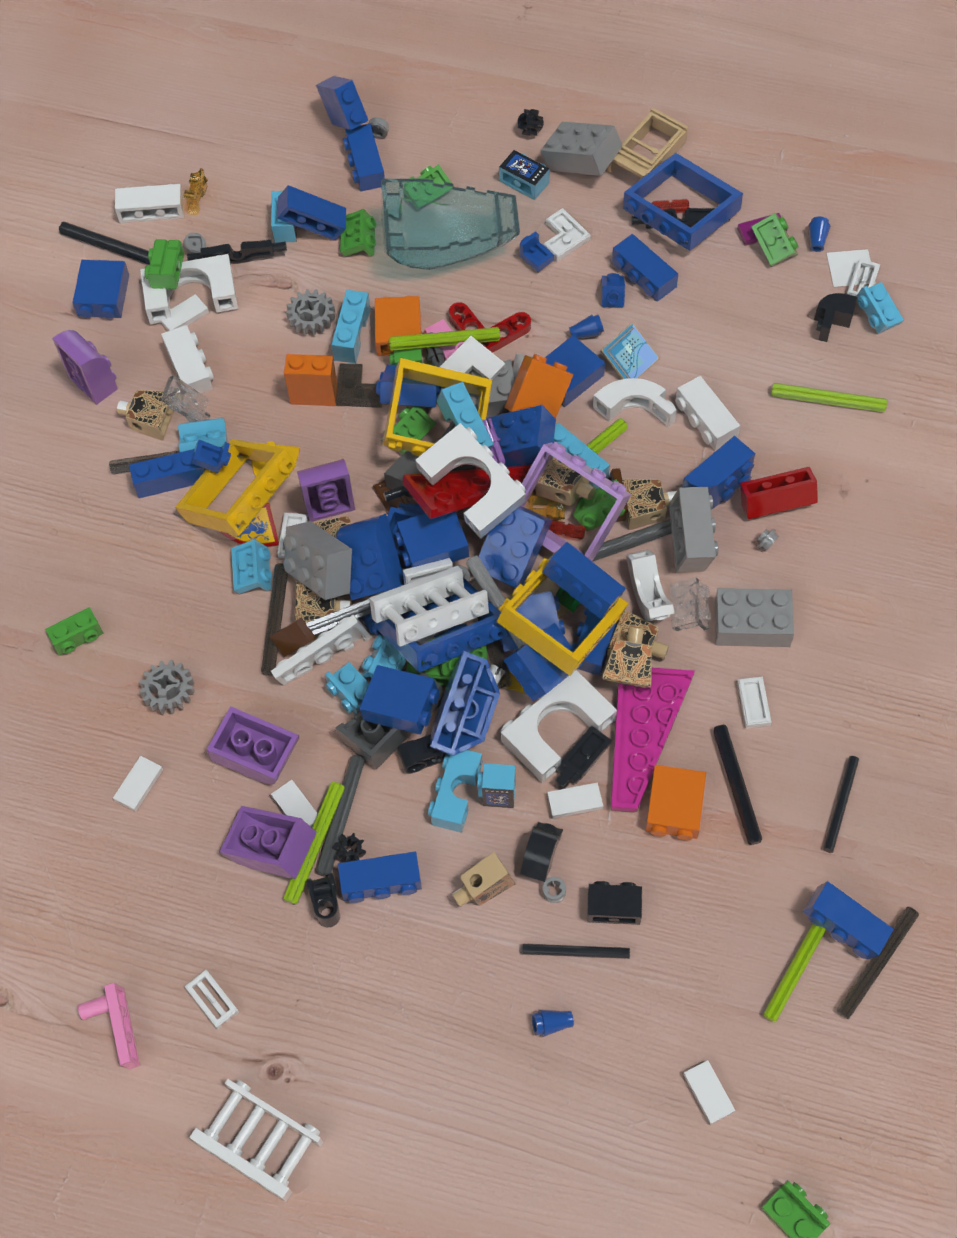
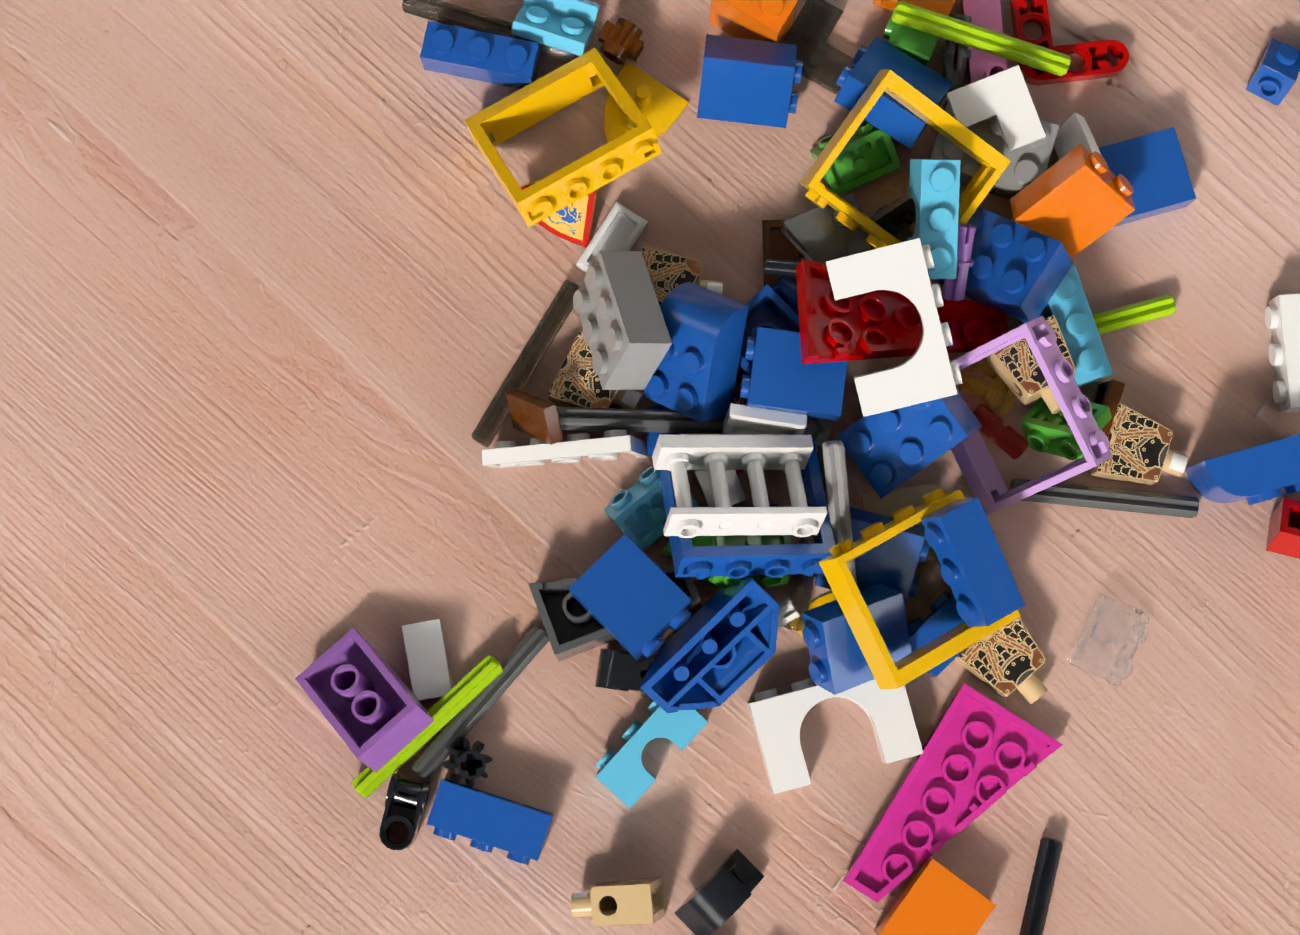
camera: 20 degrees right, 20 degrees up
(74, 631) = (244, 241): bright green bracket -> none
(116, 1004) = (73, 819): bright pink piece -> none
(138, 783) = (233, 517): white tile -> none
(166, 686) = (322, 408): light grey gear -> none
(211, 456) = (548, 71): blue bracket -> none
(225, 1016) = (213, 865): white tile -> none
(245, 429) = (621, 41): none -> reddish brown gear
(251, 566) = (530, 267): medium azure bracket -> none
(252, 746) = (406, 551): medium lavender brick -> none
(326, 490) = (687, 206): medium lavender brick -> none
(327, 415) = (748, 81): none -> blue brick
(348, 686) = (582, 525): medium azure bracket -> none
(497, 785) = (706, 779): medium azure brick -> none
(575, 800) = (802, 842): white tile -> none
(582, 757) = (843, 788): black hinge -> none
(587, 327) = (1204, 118): blue cone -> none
(630, 353) = (1241, 197): piece -> none
(630, 661) = (978, 697): torso -> none
(634, 394) = (1213, 266): white arch -> none
(647, 586) = (1065, 590): white arch -> none
(693, 529) = (1175, 540): light grey brick -> none
(754, 617) = (1188, 708): light grey brick -> none
(754, 702) = (1119, 827): white tile -> none
(767, 539) = (1275, 596): light grey plate -> none

